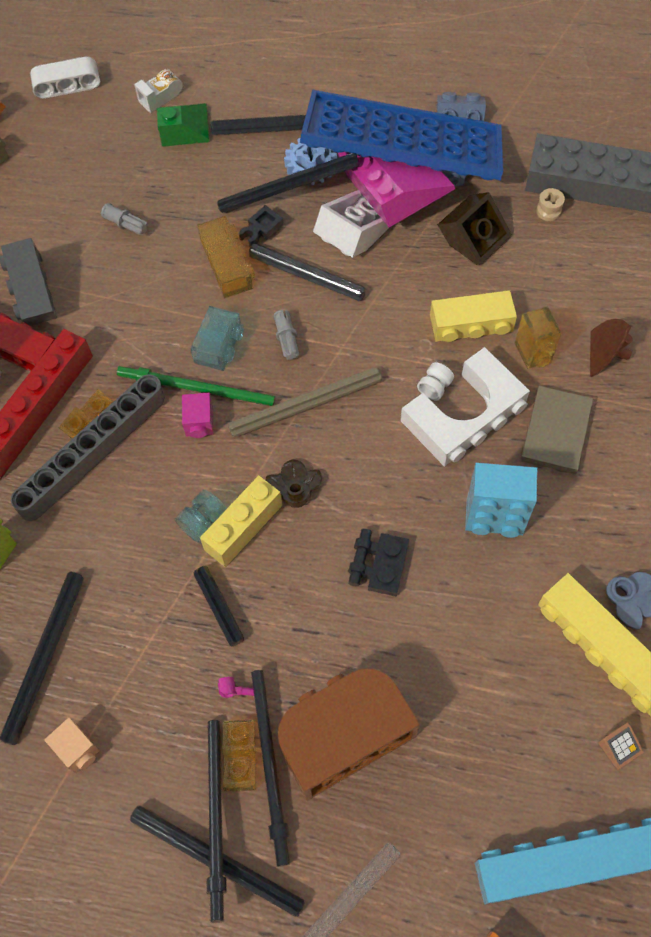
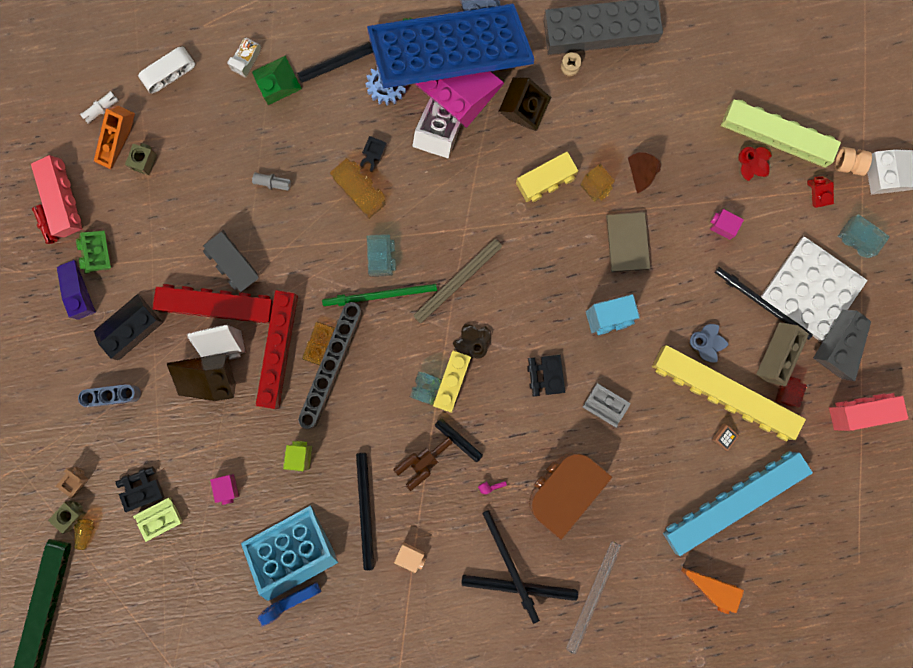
camera: 25 degrees left, 20 degrees up
(149, 616) = (421, 463): none -> reddish brown plant
(197, 415) = (391, 318): dark pink brick -> none
(239, 755) = (508, 525): clear yellow slope -> none
(278, 829) = (547, 558): black bar -> none
(286, 334) = (425, 235): light grey axle -> none
(288, 182) = (381, 115): black axle -> none
(307, 272) = (419, 179): black axle -> none
(436, 380) = (539, 236): white wheel -> none
(451, 437) = (586, 233): white arch -> none
(451, 632) = (606, 405): none -> light grey plate

